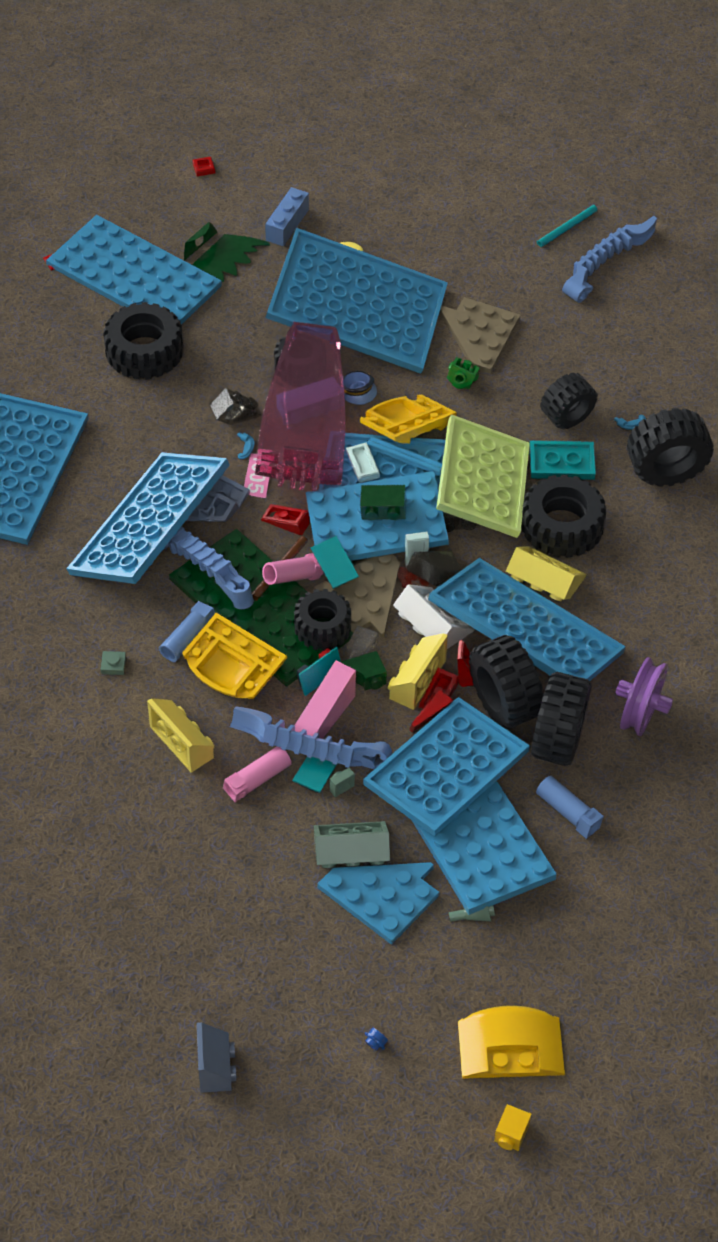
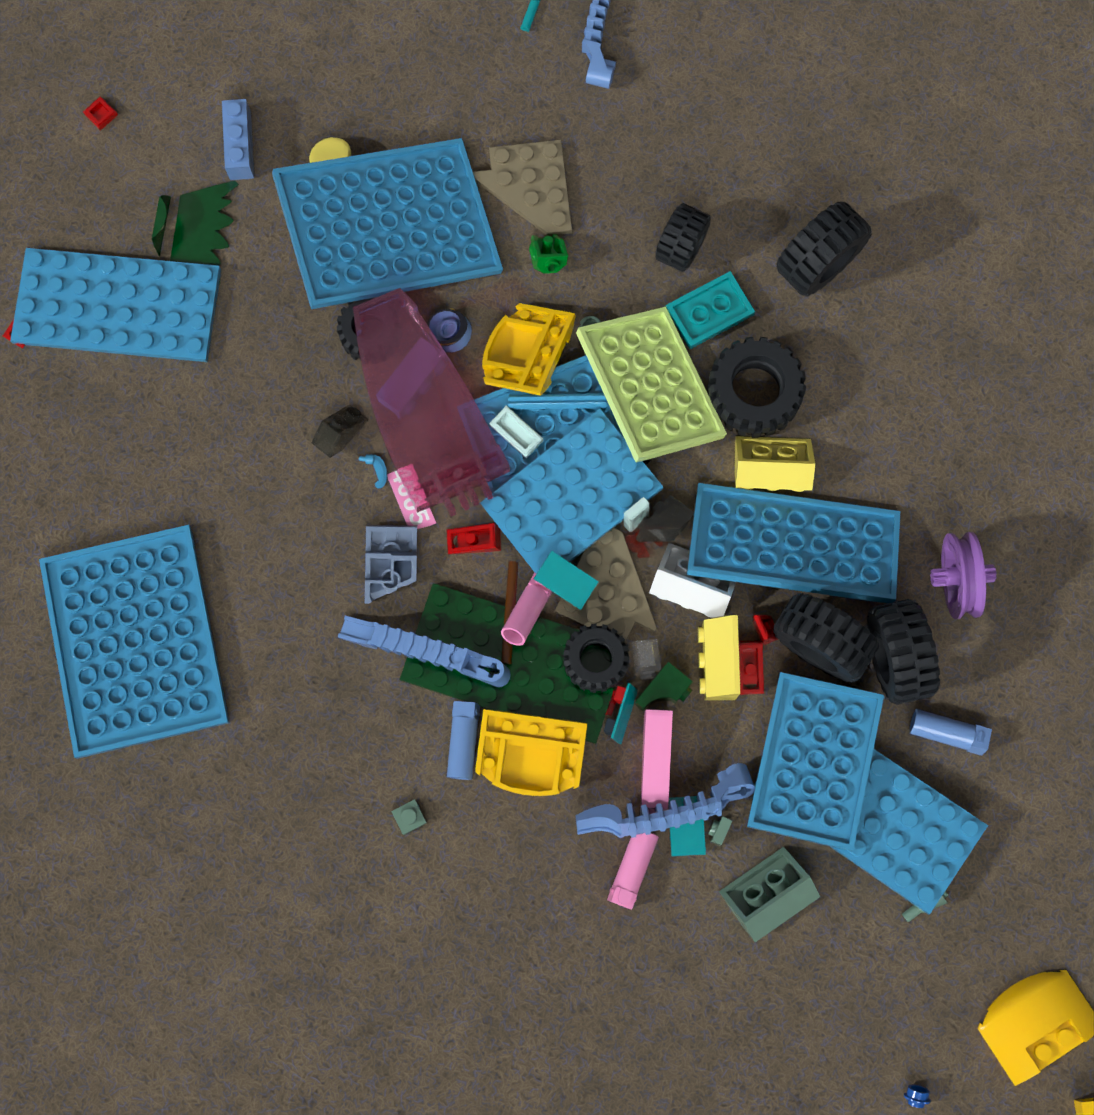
camera: 25 degrees left, 25 degrees up
(145, 359) = (172, 372): black tyre -> none
(148, 517) = (340, 628): dark azure plate -> none
(180, 733) = (533, 867): light yellow slope -> none
(382, 895) = (831, 933): dark azure wing -> none
(383, 502) = (576, 483): dark green brick -> none
(431, 710) = (760, 696): red slope -> none
(630, 424) = (752, 222): dark azure piece -> none

